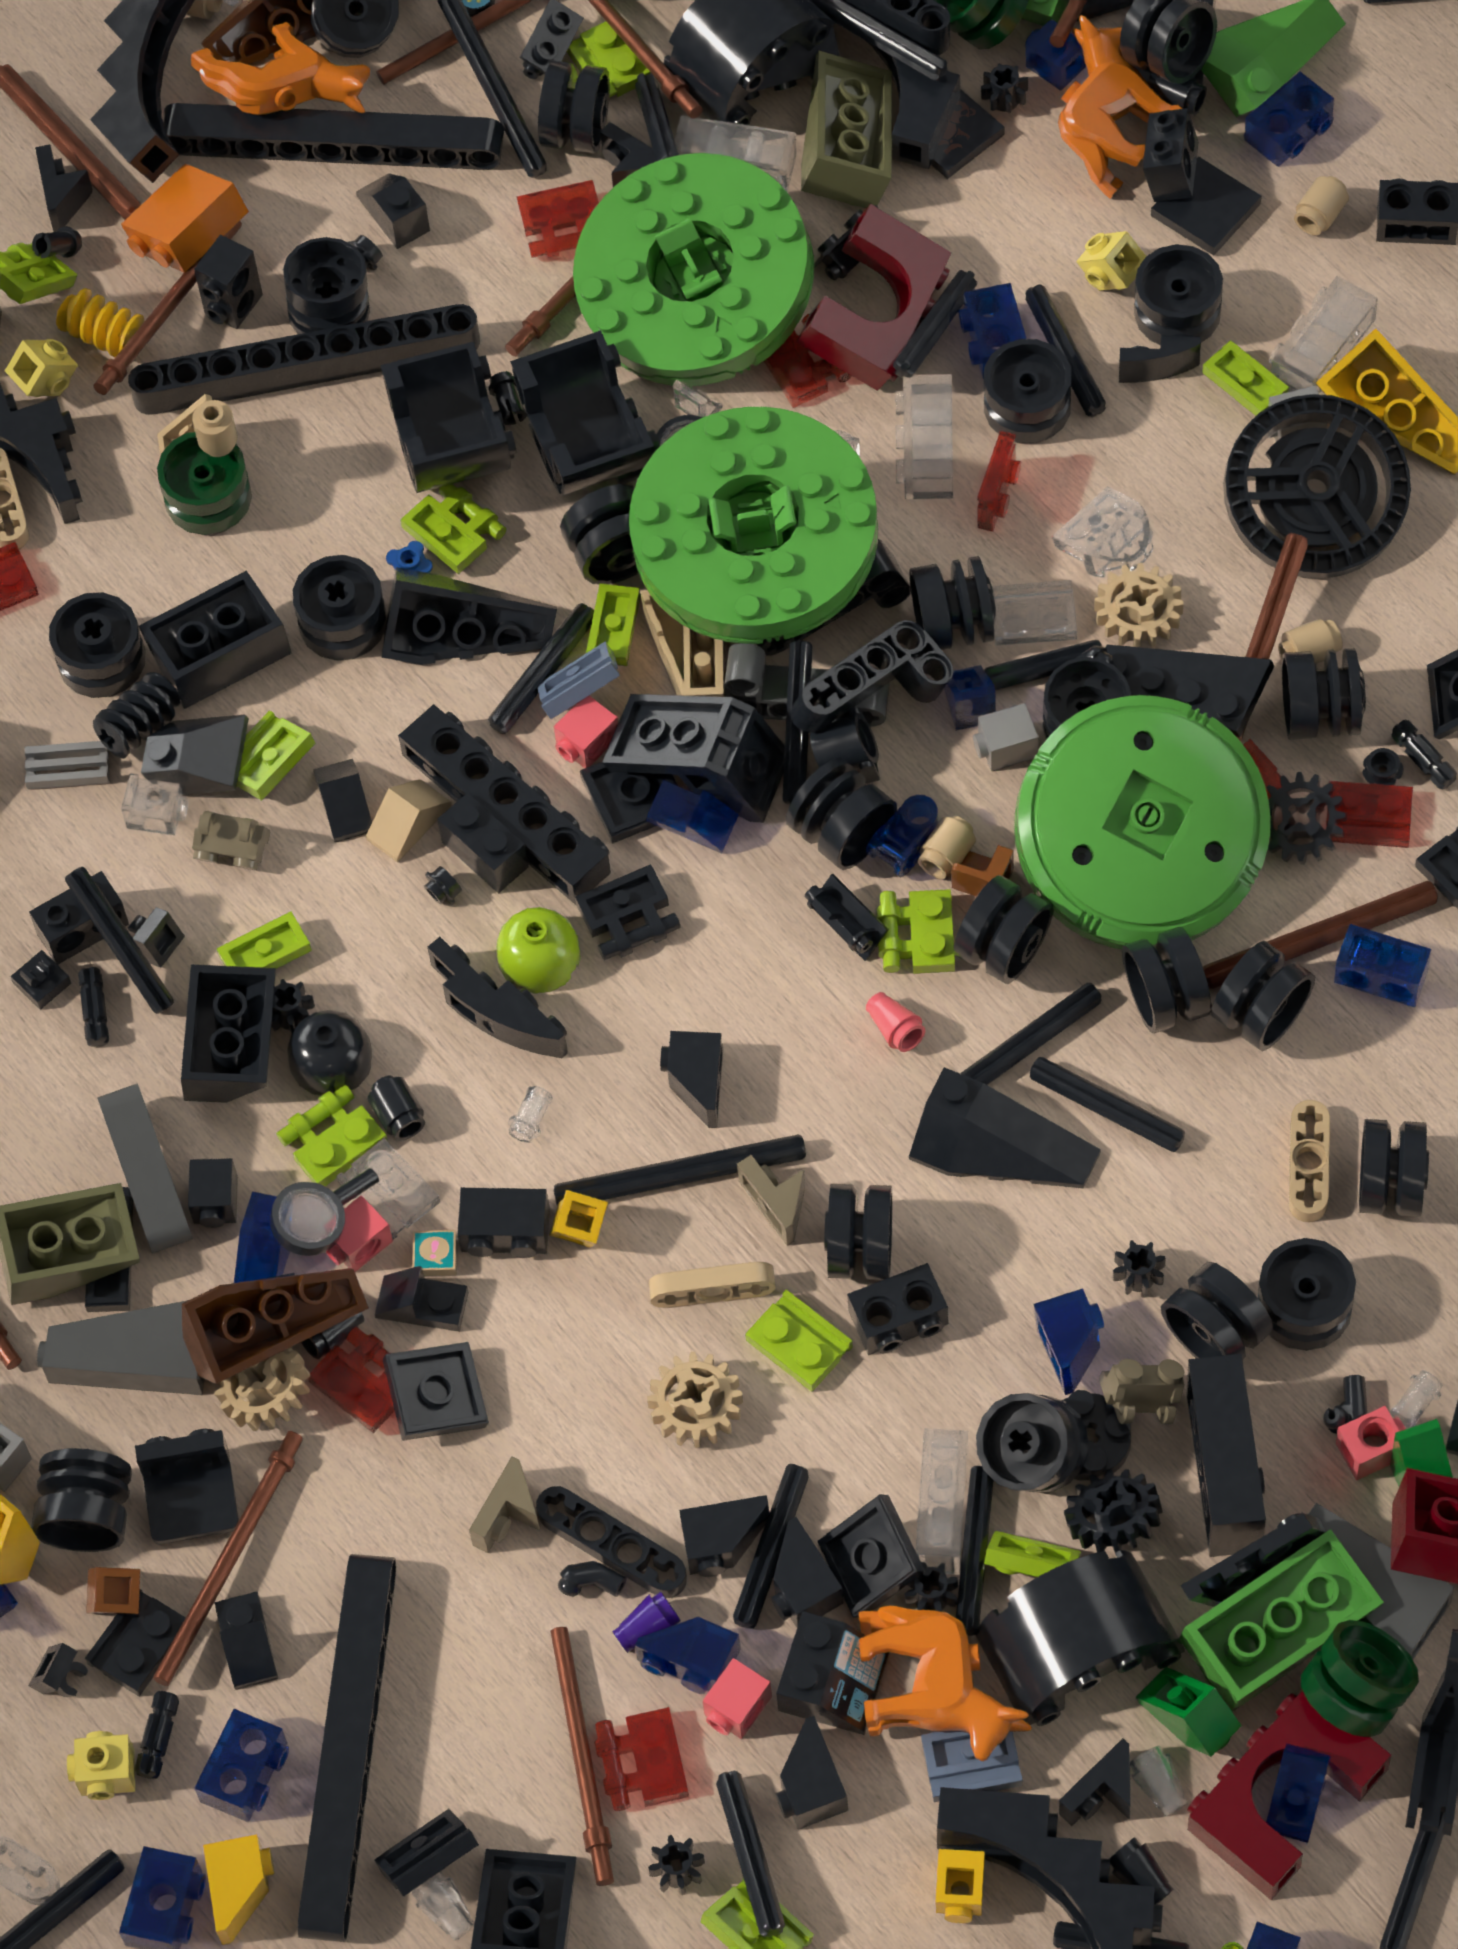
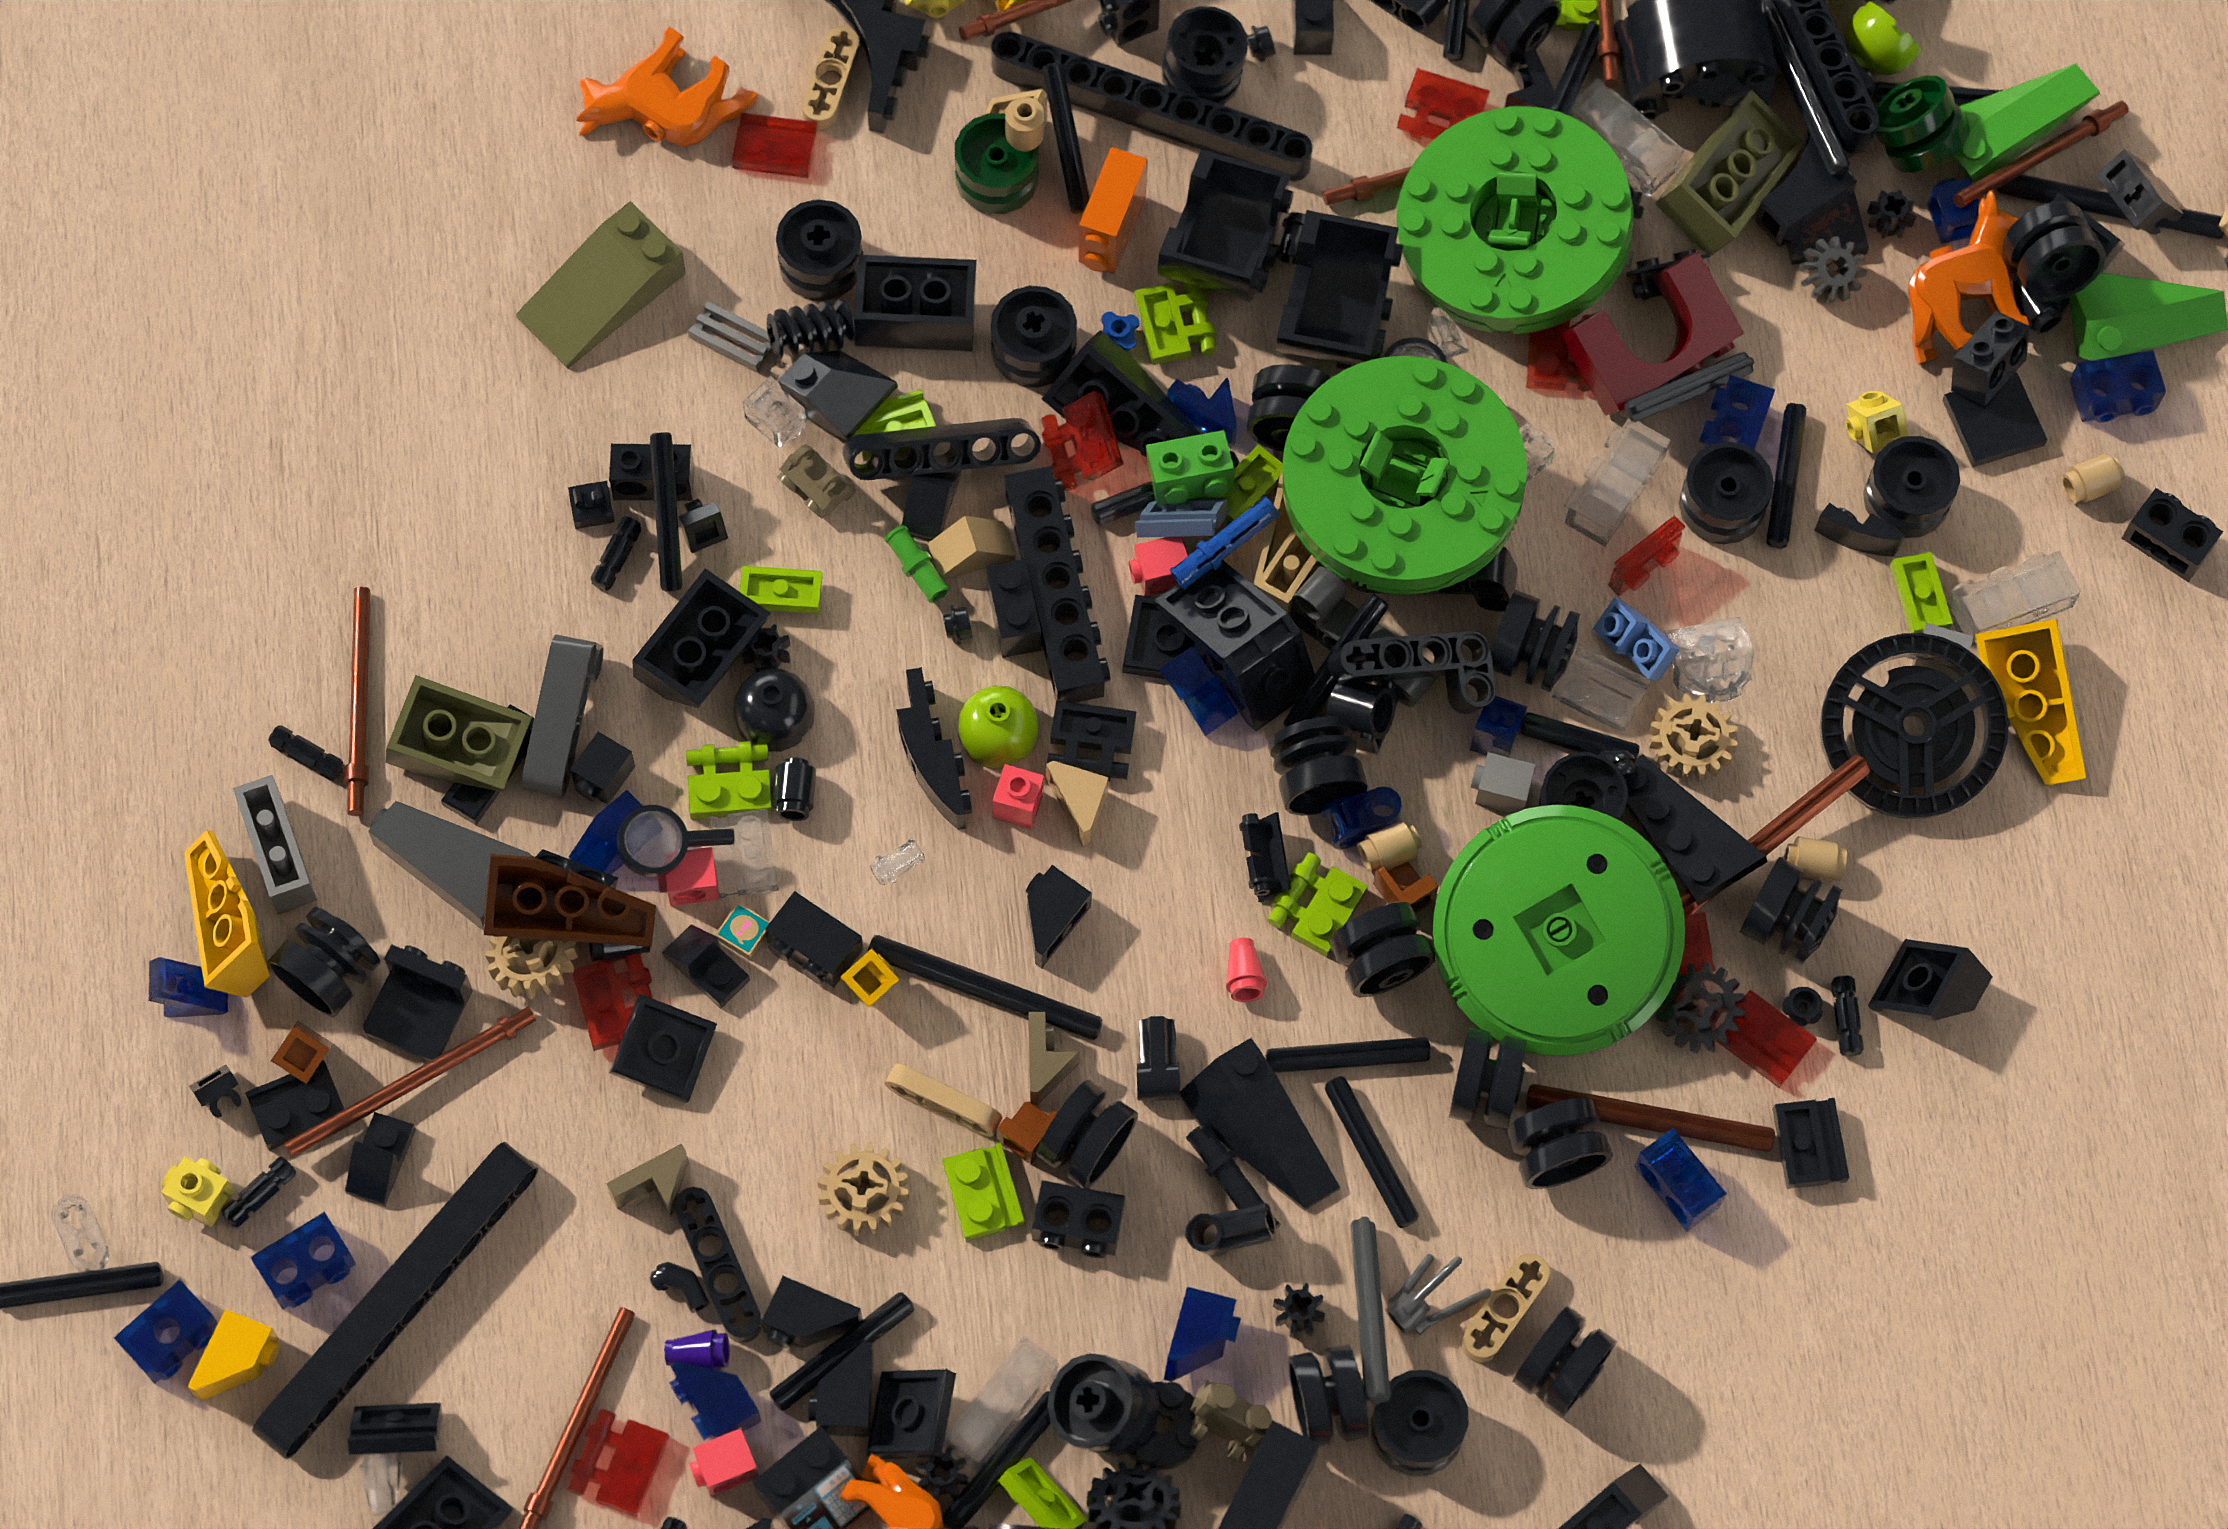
camera: 25 degrees right, 5 degrees up
(253, 427) = (1066, 137): none -> black axle
(309, 752) = (924, 440): none -> black beam
(336, 462) = (1112, 210): none -> orange brick
(370, 857) = (917, 564): none -> bright green pin
(452, 661) = (1092, 439): none -> clear red plate
(544, 583) = (1205, 413): none -> clear blue slope
(557, 634) = (1190, 468): none -> bright green brick
(598, 995) = (1018, 796): none -> coral brick
(627, 692) = (1212, 552): none -> blue pin
(649, 964) = (1079, 795): none -> tan slope
(803, 1267) = (1024, 1131): none -> dark orange panel
(879, 1148) = (1158, 1071): none -> black piece
(999, 152) = (1847, 270): none -> dark grey gear
(1017, 1202) = (1223, 1167): none -> black pin
(1035, 554) = (1637, 638): none -> medium blue slope
(1041, 1232) = (1234, 1229): none -> black piece
(1201, 1226) = (1370, 1311): none -> dark grey axle
(1231, 1212) = (1410, 1310): none -> dark grey plant

